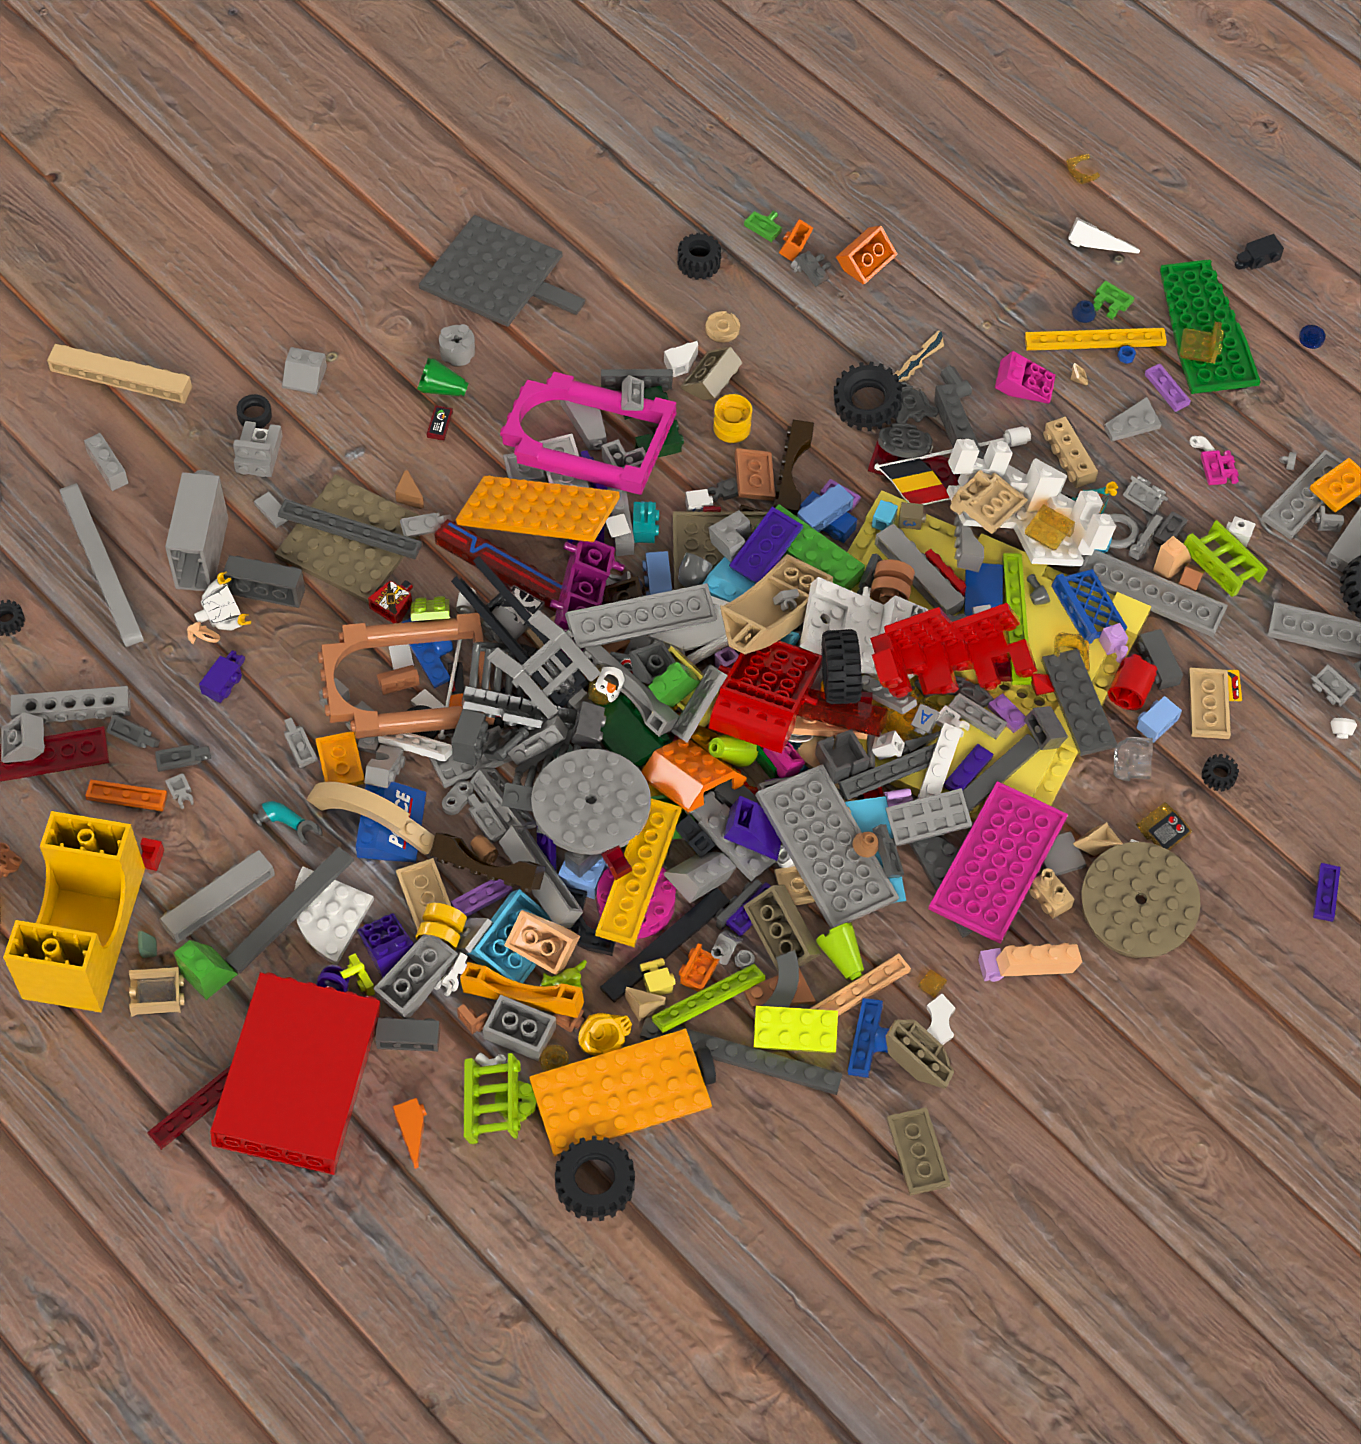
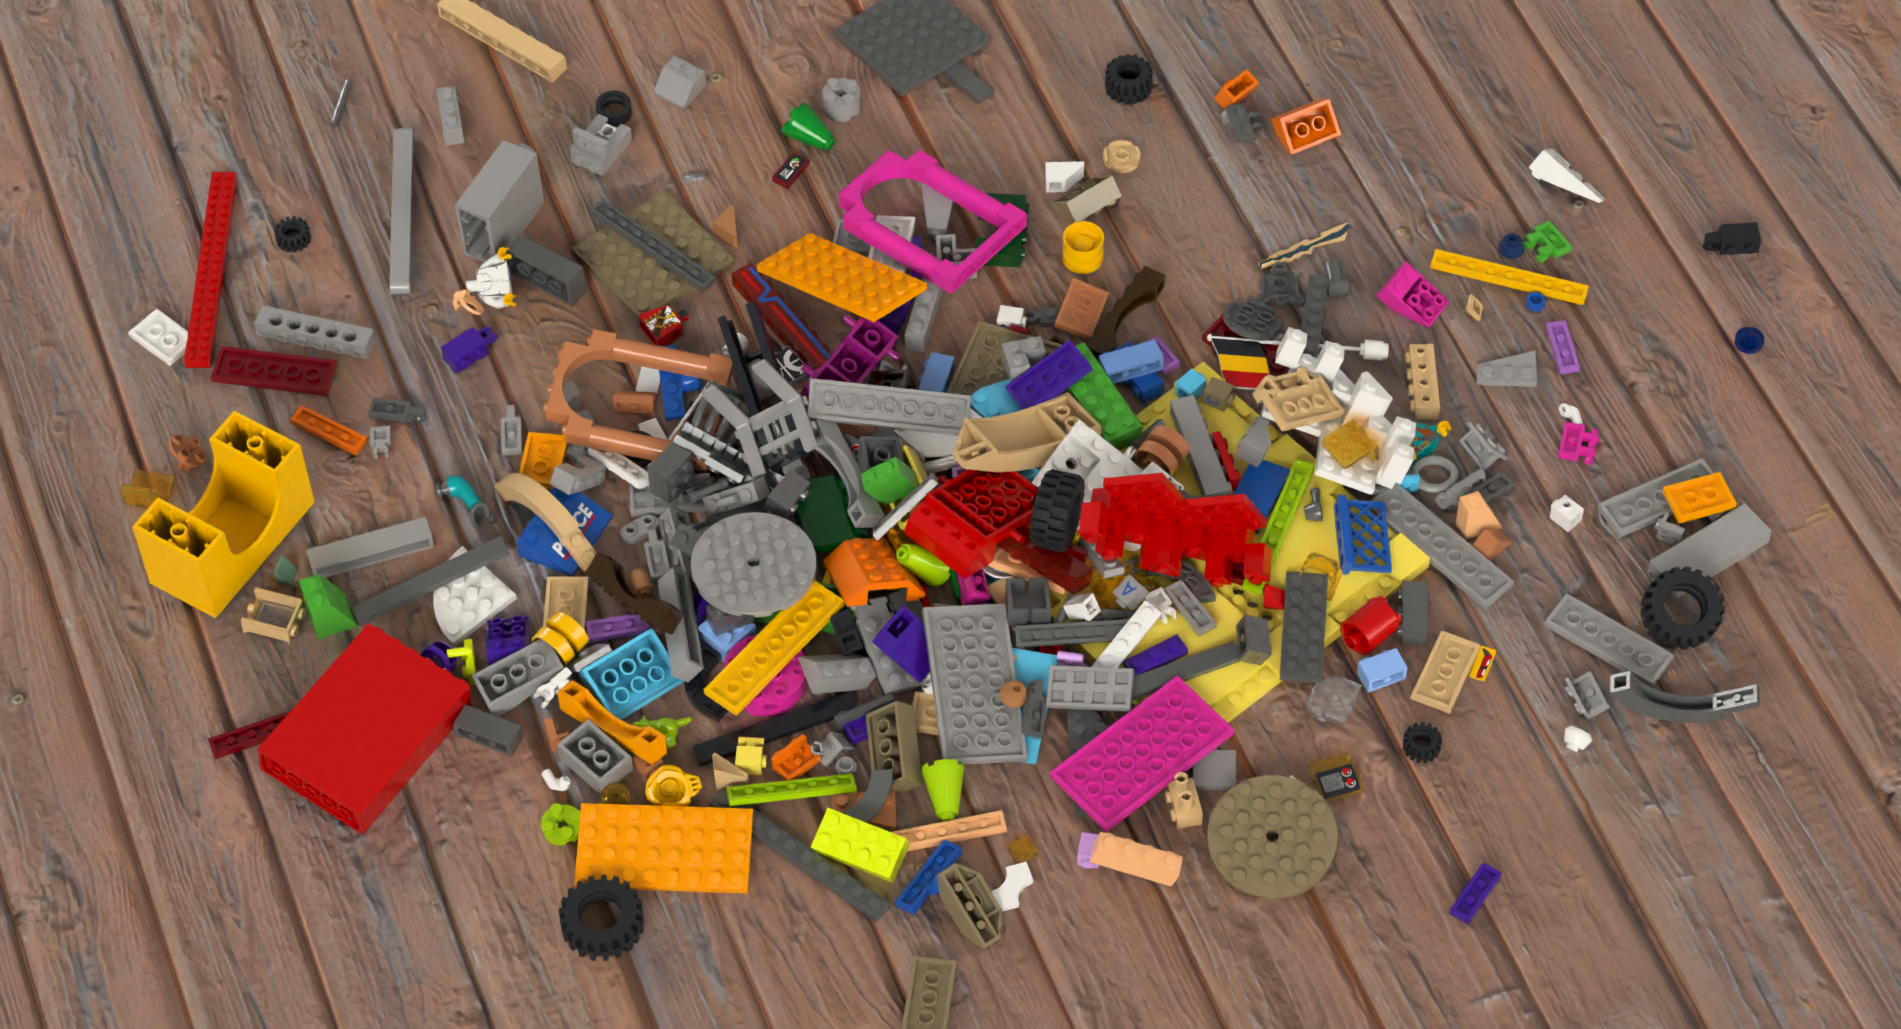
camera: 25 degrees right, 5 degrees down
(22, 738) = (255, 347): light grey slope -> none
(131, 732) = (359, 374): dark grey hinge -> none
(151, 853) = (329, 490): red panel -> none
(270, 507) = (585, 201): light grey tile -> none
(411, 1124) = (453, 814): orange slope -> none
(422, 524) = (724, 261): light grey hinge -> none
(430, 609) = (689, 341): lime plate -> none
(473, 1091) = (526, 799): lime fence -> none
(542, 941) = (652, 684): light nougat slope -> none
(603, 692) = (817, 468): piece -> none
(613, 378) = (1003, 182): dark grey plate -> none
(616, 862) = (752, 629): dark red panel -> none
(617, 525) = (913, 316): white sticker -> none
(632, 394) = (986, 192): light grey slope -> none
(644, 522) = (947, 323): teal brick -> none
(693, 570) = (967, 380): dark grey piece -> none
(706, 1065) = (757, 850): black tyre -> none
(763, 225) = (1212, 67): bright green plate -> none
(786, 597) = (1043, 432): light grey tile -> none
(864, 377) = (1231, 246): black tyre -> none
(1007, 711) = (1223, 614): medium lavender plate -> none
(1081, 178) = (1574, 93): clear yellow helmet -> none
(1098, 840) = (1255, 765): tan slope -> none
(1114, 641) = (1369, 577): lavender brick -> none
(1196, 303) = (1636, 300): green wing -> none
(1201, 344) = (1617, 312): clear yellow bracket -> none
(1215, 567) = (1522, 545): lime fence -> none
(1290, 461) = (1658, 458): light grey tile -> none

